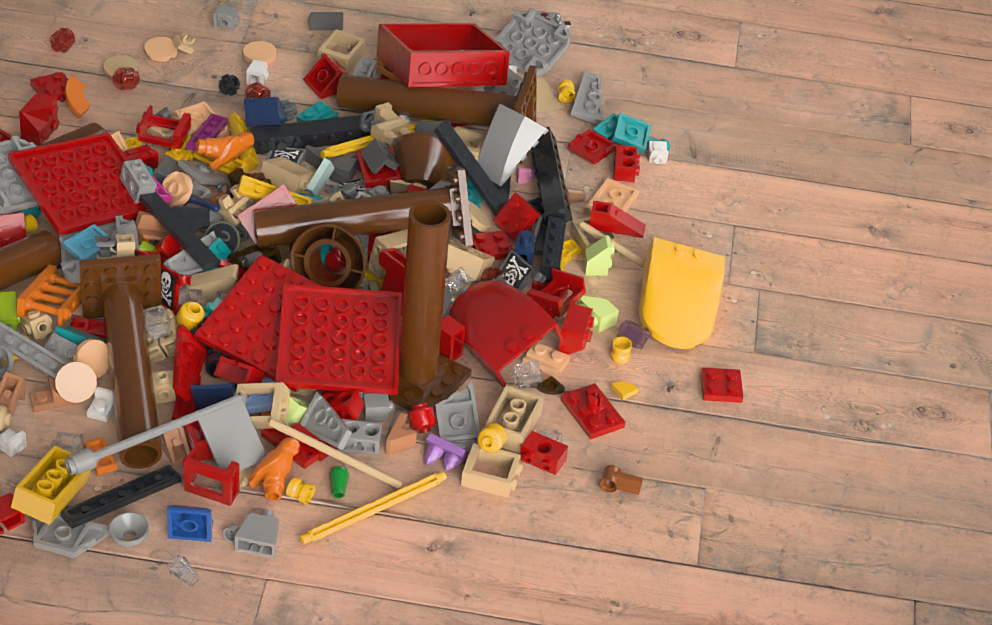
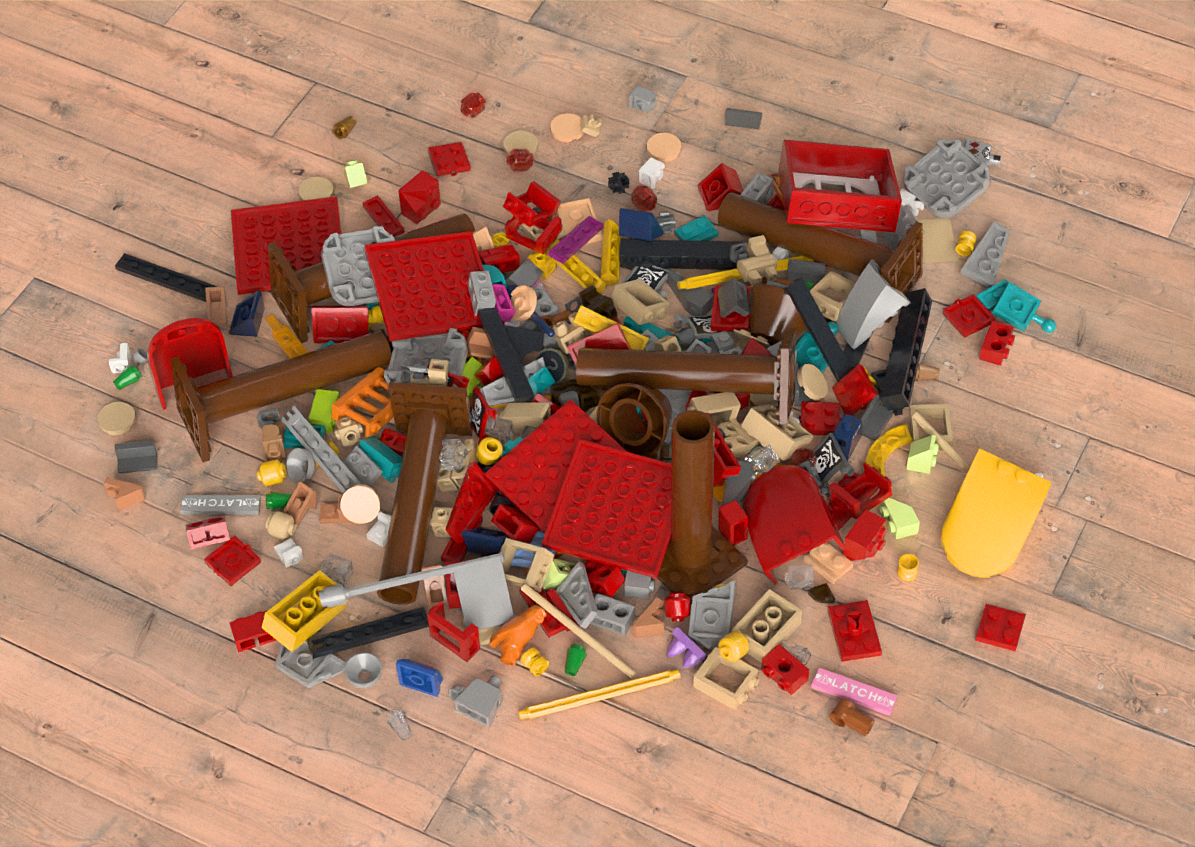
camera: 25 degrees right, 10 degrees up
(75, 97) = (464, 174): orange tile -> none
(83, 244) = (417, 348): medium azure plate -> none
(94, 354) = (384, 479): light nougat tile -> none
(105, 464) = (360, 577): orange plate -> none
(159, 105) = (538, 196): none -> red panel
(201, 173) = (557, 284): light grey plate -> none
(224, 148) = (583, 263): orange animal -> none
(319, 178) = (673, 307): light aqua tile -> none
(343, 39) = (748, 172): tan window -> none
(525, 175) = (885, 338): bright pink tile -> none
(552, 246) = (877, 435): black brick -> none
(612, 219) = (950, 416): red slope -> none
(614, 193) = (966, 385): light nougat tile -> none
(624, 389) = (896, 612): yellow tile -> none
(624, 460) = (854, 691): none -> bright pink tile
(634, 332) = (927, 552): brick -> none
(657, 152) = (1037, 334): white bracket -> none

